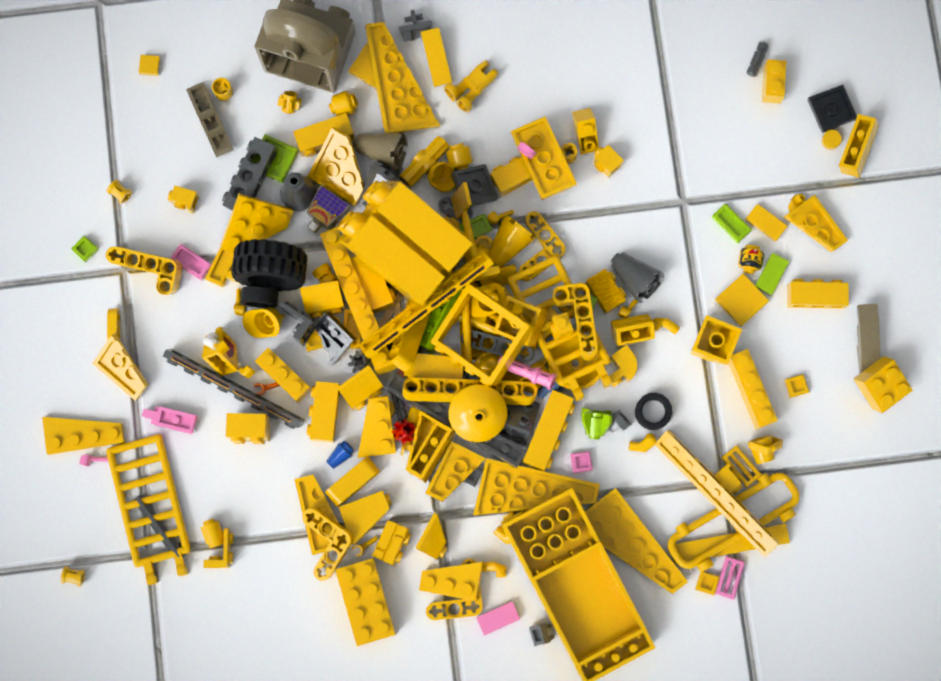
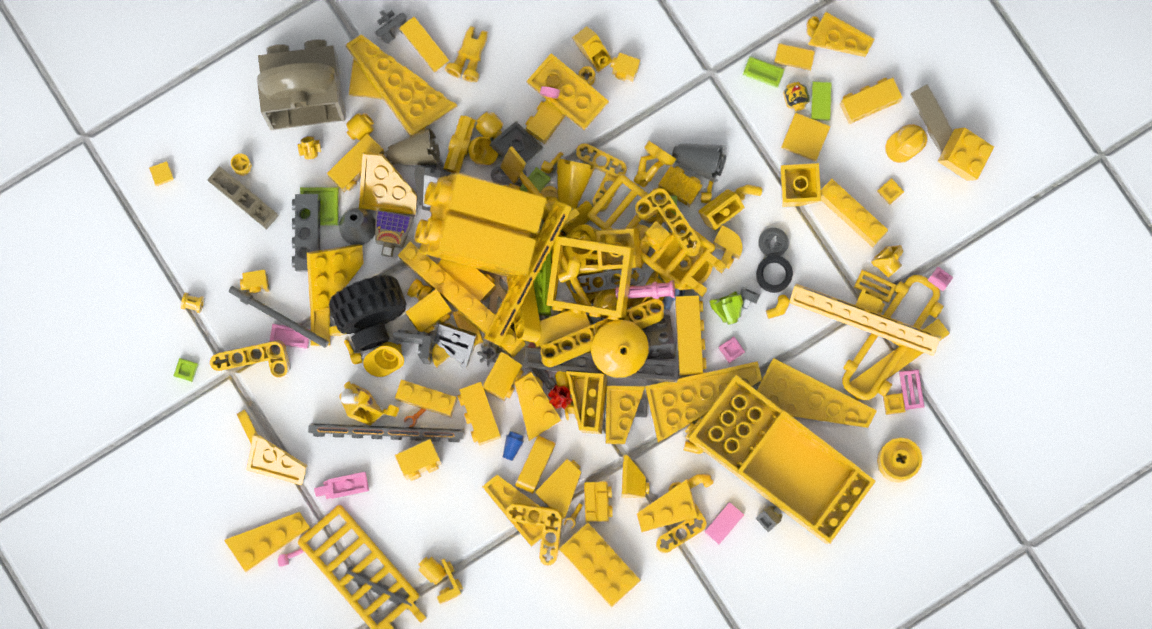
camera: 25 degrees left, 0 degrees up
(169, 210) = (247, 298): none -> dark grey bar
(467, 321) = (572, 270): none -> yellow arm
(598, 250) = (643, 177): none -> yellow piece
(666, 372) = (769, 234): none -> dark grey gear
(698, 642) = (910, 456): none -> yellow wheel
(805, 488) = (940, 278): none -> bright pink tile
(831, 348) = (906, 143): none -> yellow piece

